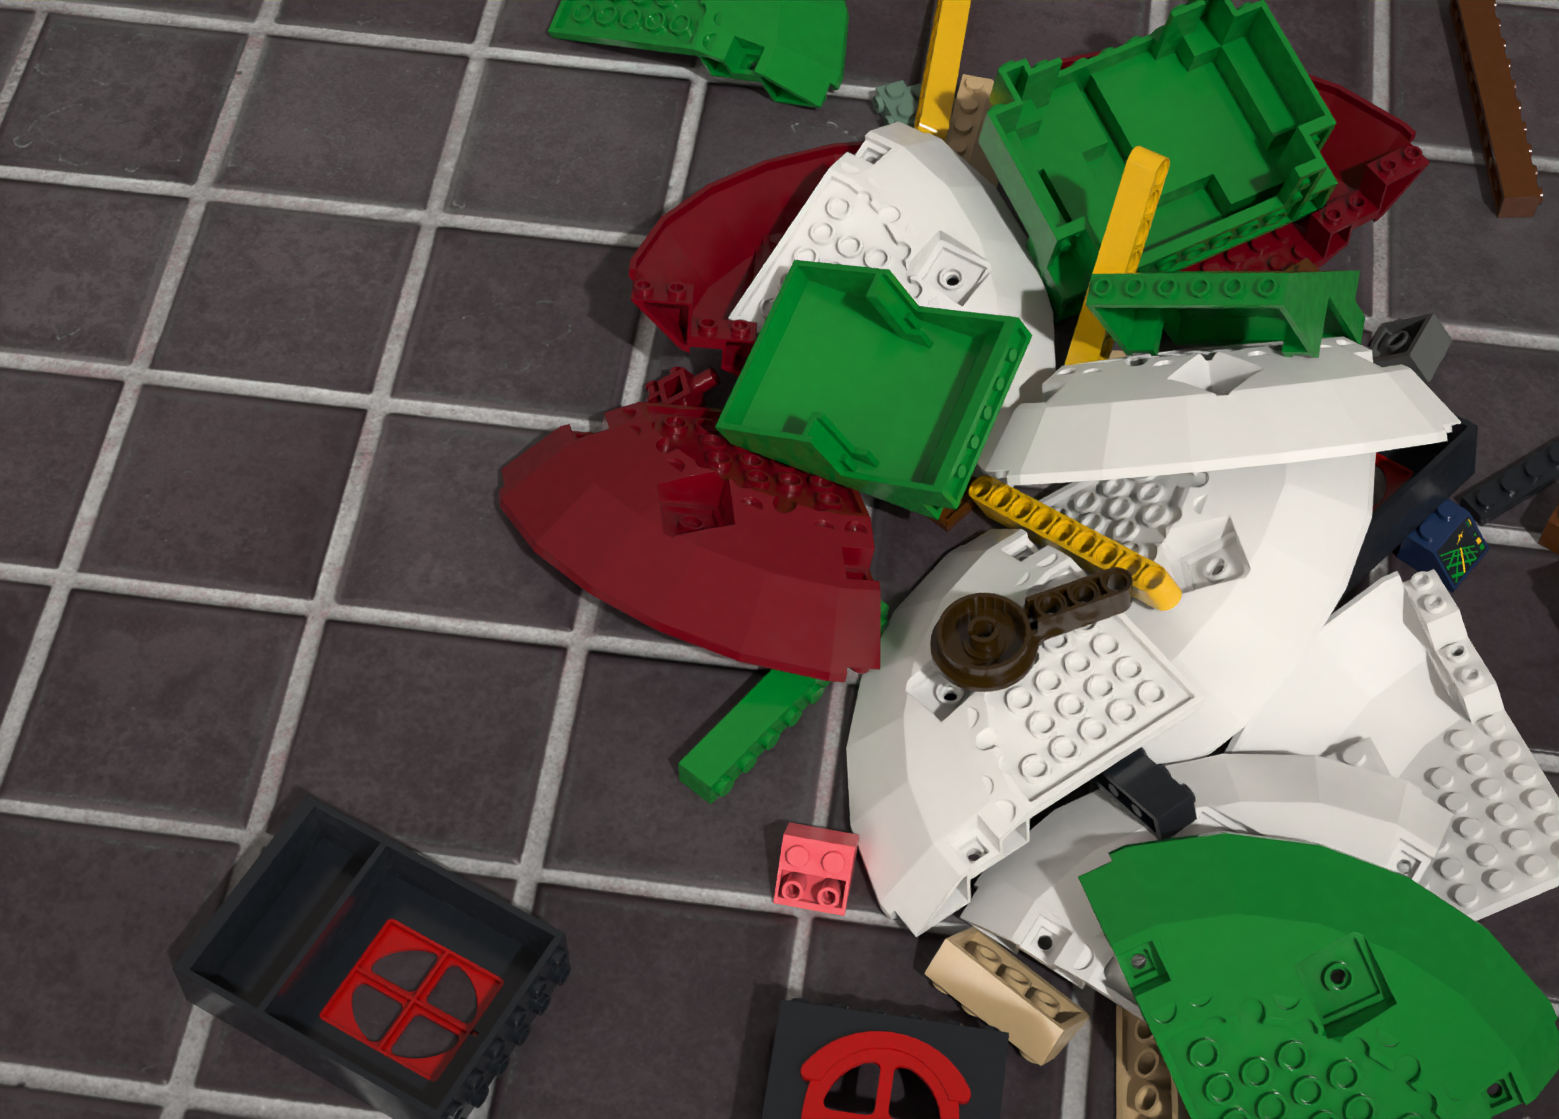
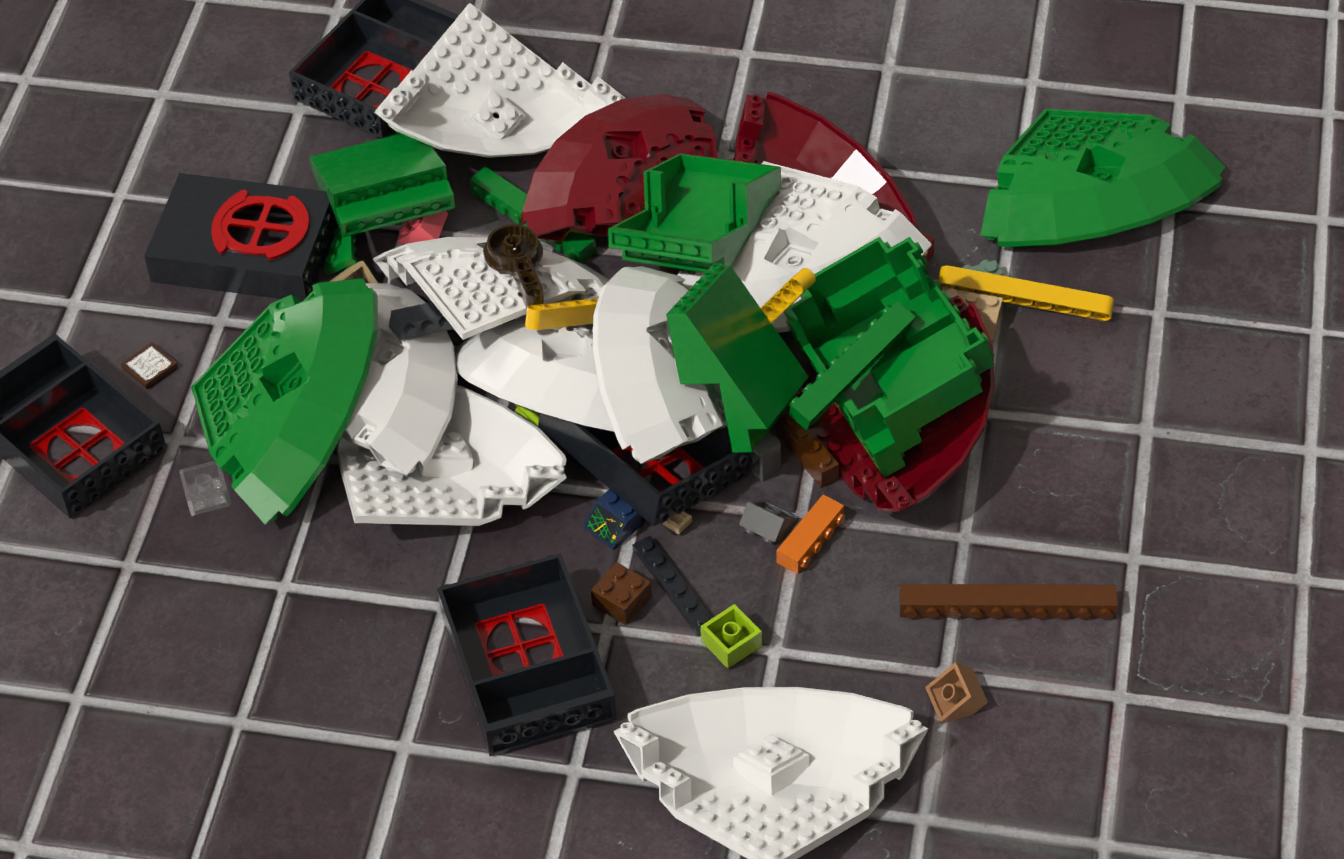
camera: 95 degrees right, 5 degrees down
(521, 748) = (484, 72): none -> white panel
(734, 923) = (382, 183): none -> green panel
(894, 991) = (341, 253): none -> green wing
(1190, 198) = (851, 365): none -> green brick
(1411, 295) = (810, 534): none -> orange brick

